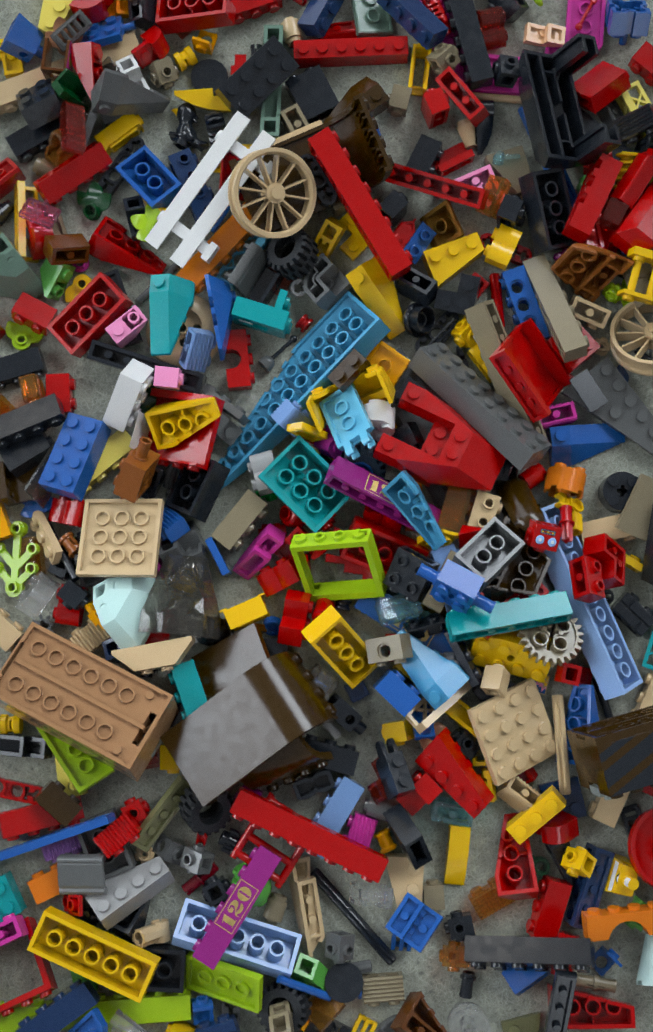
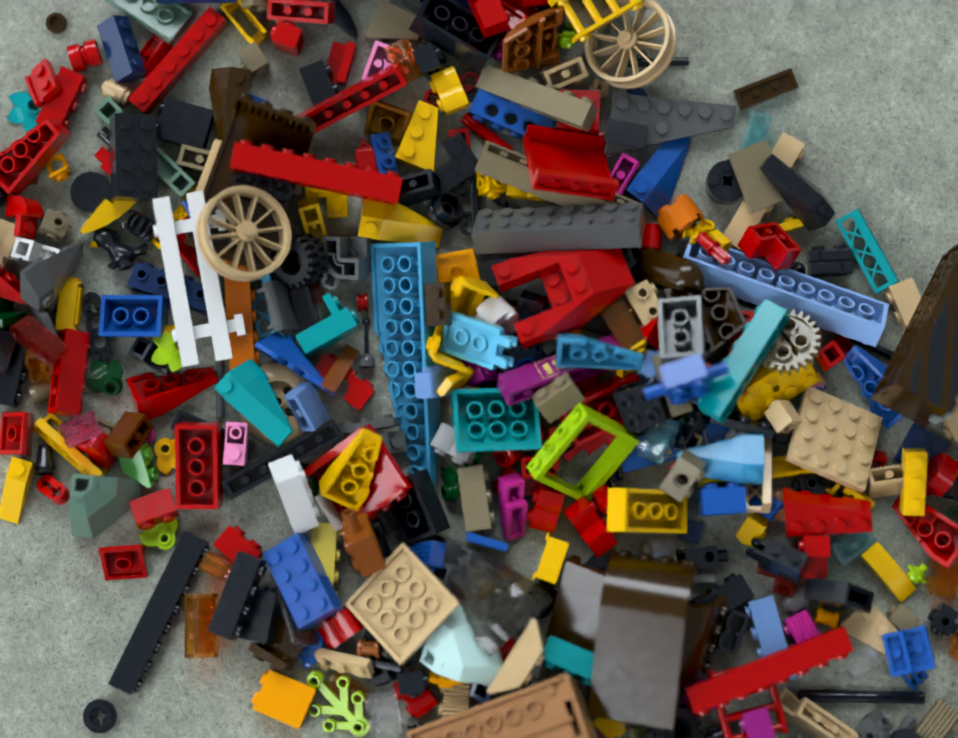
camera: 40 degrees left, 0 degrees up
(168, 377) = (310, 449): bright pink brick -> none
(185, 58) = (57, 197): yellow wheel -> none
(231, 499) = (450, 490): none -> dark green plate
(243, 347) = (340, 368): none -> dark orange sticker
(272, 625) = (579, 548): blue tile -> none
(361, 511) = (557, 397): none -> dark tan brick
(394, 207) = (339, 146): black brick -> none
(467, 133) = (331, 32): tan cone -> none
(474, 876) = (917, 574): none -> lime plant
(498, 158) = (376, 27): clear light blue hand -> none
(543, 536) = (706, 276): red head -> none
(561, 744) = (878, 412): tan axle -> none
(586, 579) = (770, 273): red brick -> none

